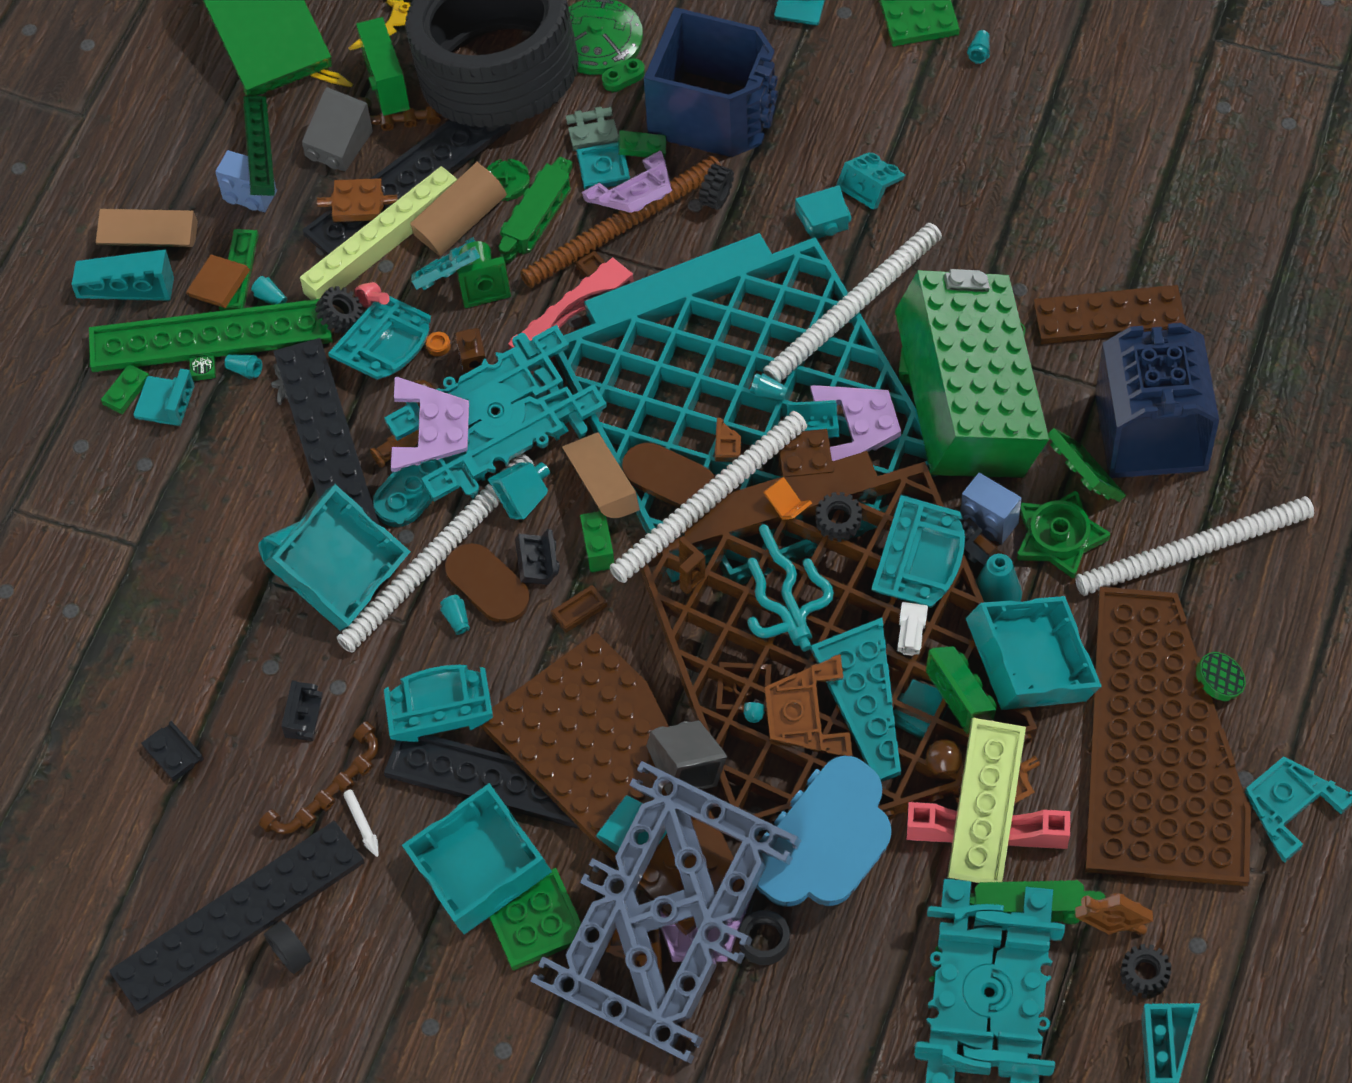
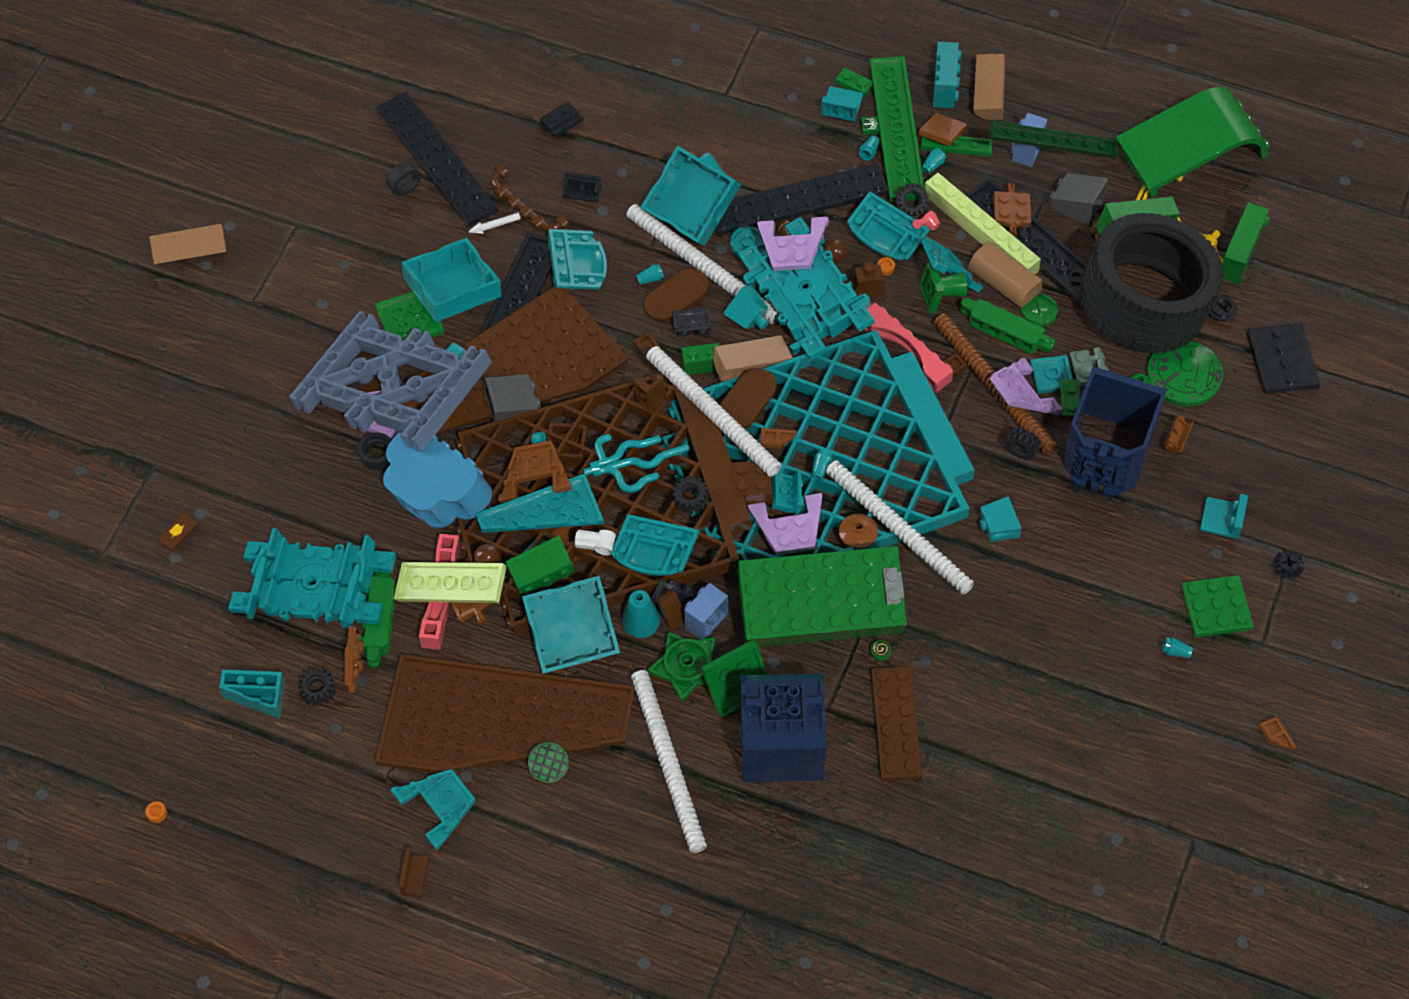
camera: 90 degrees right, 0 degrees up
(785, 499) = (706, 459): orange bracket -> none
(858, 357) = (858, 537): none -> dark orange dish
(867, 178) = (1037, 556): teal bracket -> none

